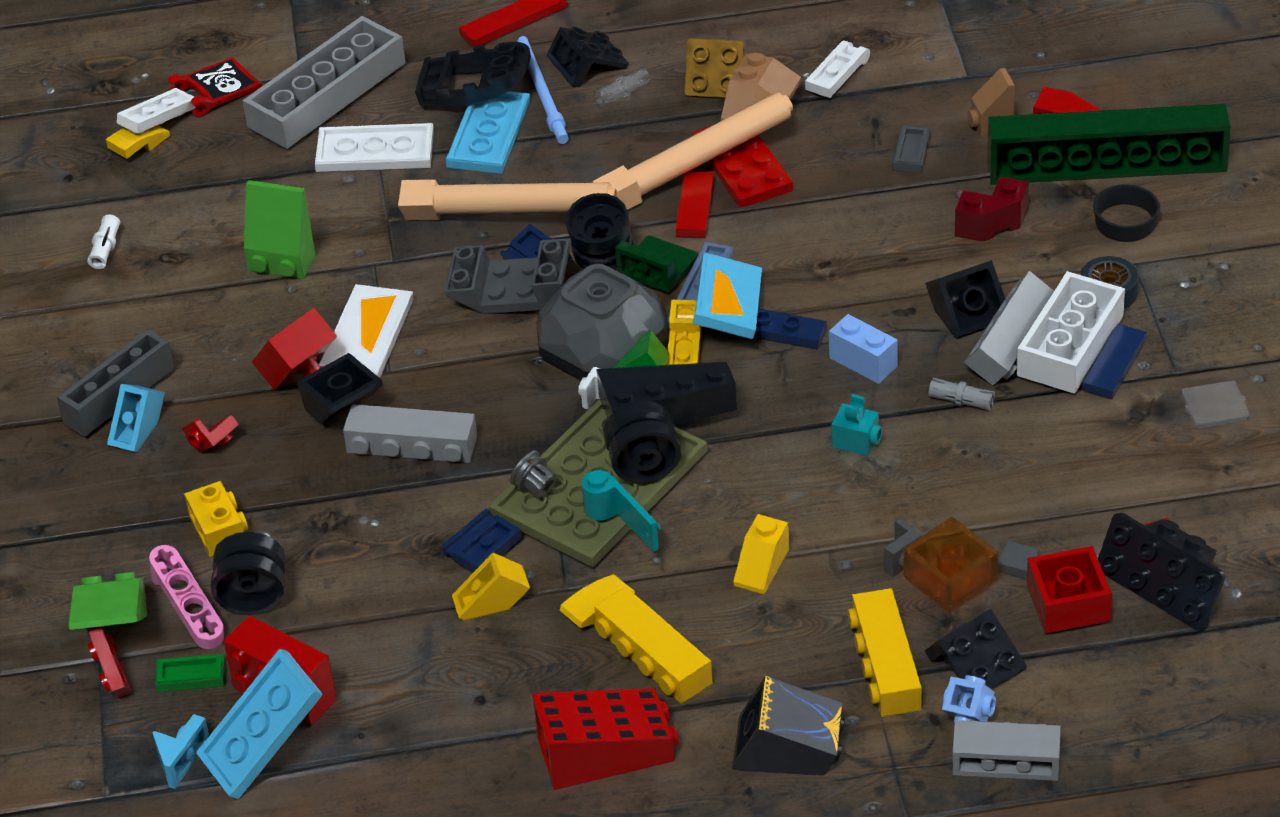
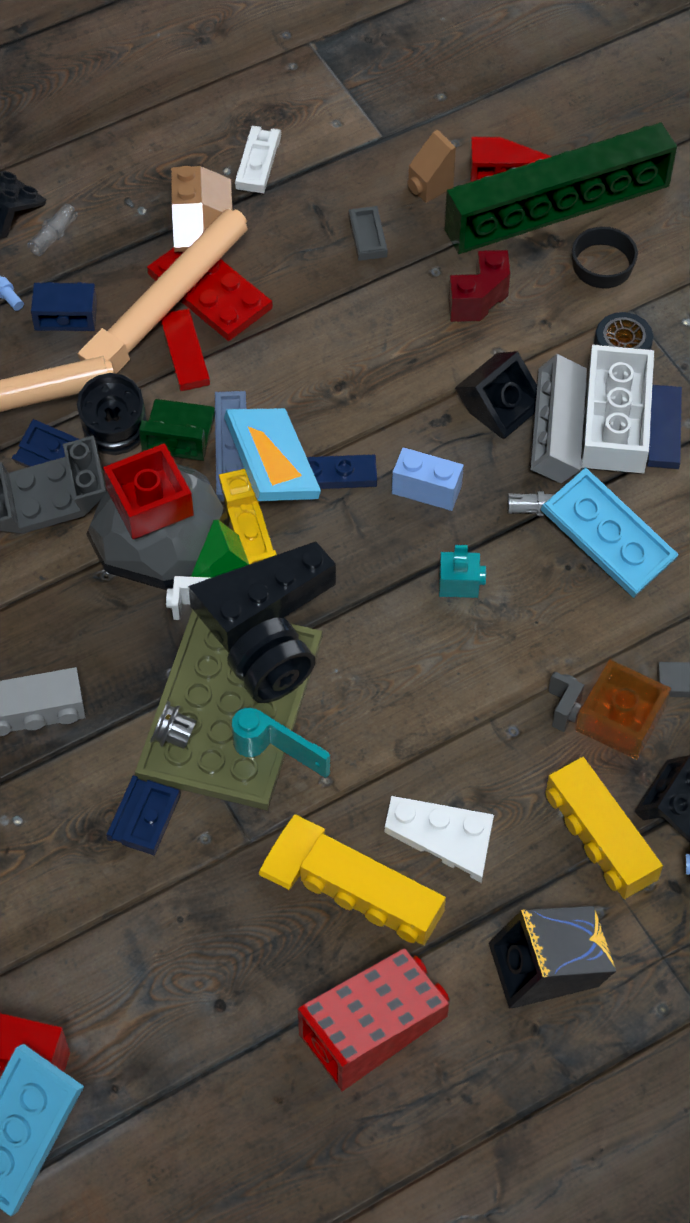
camera: 25 degrees left, 15 degrees up
(491, 588) = (179, 872): yellow slope -> none
(588, 280) = (148, 491): none -> red brick
(601, 146) = (64, 306): none -> dark blue brick
(711, 66) = (141, 189): pearl gold bracket -> none
(743, 623) = (447, 832): none -> white wing
(762, 554) = (433, 749): yellow slope -> none
(1013, 429) = (609, 532): none -> medium azure tile

